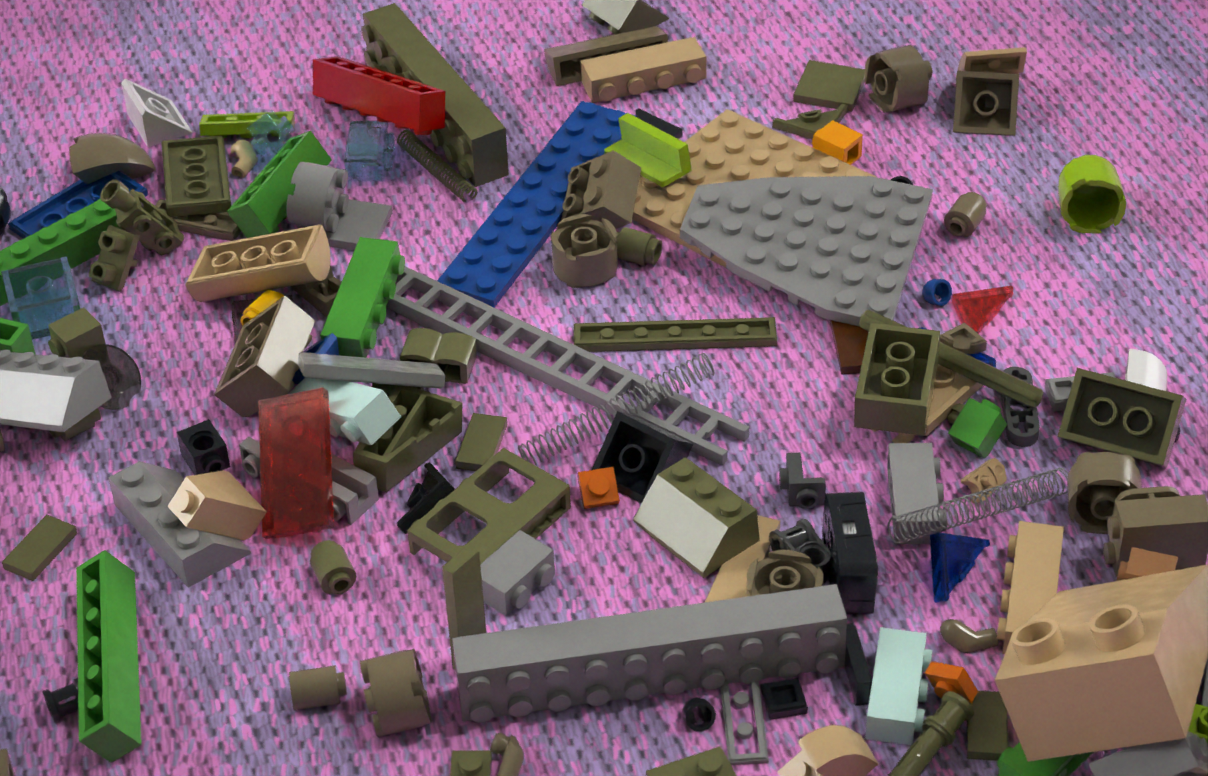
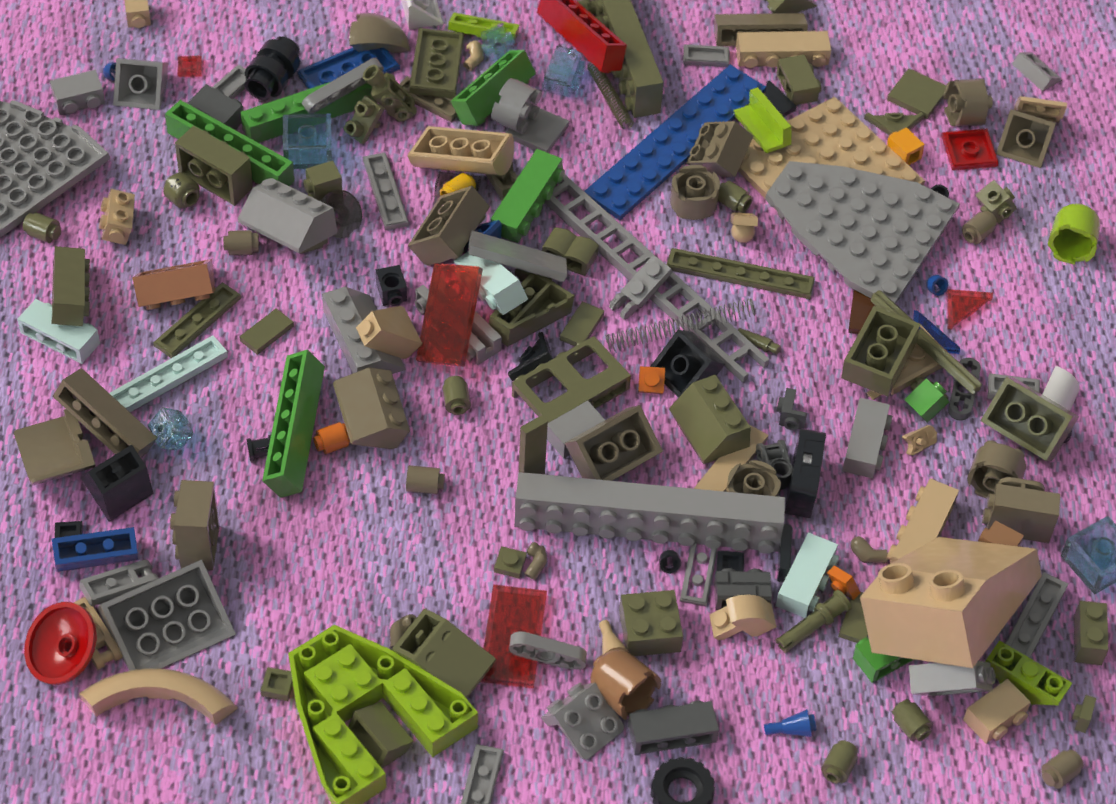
camera: 10 degrees right, 10 degrees up
(68, 223) = (338, 87): none -> light grey beam
(165, 340) = (385, 191): none -> light grey tile
(169, 662) = (331, 438): none -> orange brick
(217, 609) = (372, 408): none -> dark tan slope
(395, 692) = (474, 497): dark tan brick -> none
(547, 98) = (706, 55): none -> light grey tile
(549, 375) = (641, 286): none -> light grey hinge
(576, 576) = (614, 445): none -> dark tan brick
(661, 276) = (743, 226): none -> tan tile
(675, 99) = (798, 79): none -> olive brick
(732, 409) = (761, 342): none -> olive animal
(794, 720) = (735, 583): none -> dark grey brick
(919, 133) = (969, 149): none -> red tile
(952, 560) = (876, 494): clear blue tile -> none
(964, 339) = (941, 328): dark tan tile -> none
(966, 32) = (1036, 70): none -> light grey slope
(978, 177) = (996, 201): none -> olive brick
(981, 502) = (904, 460): light grey piece -> none

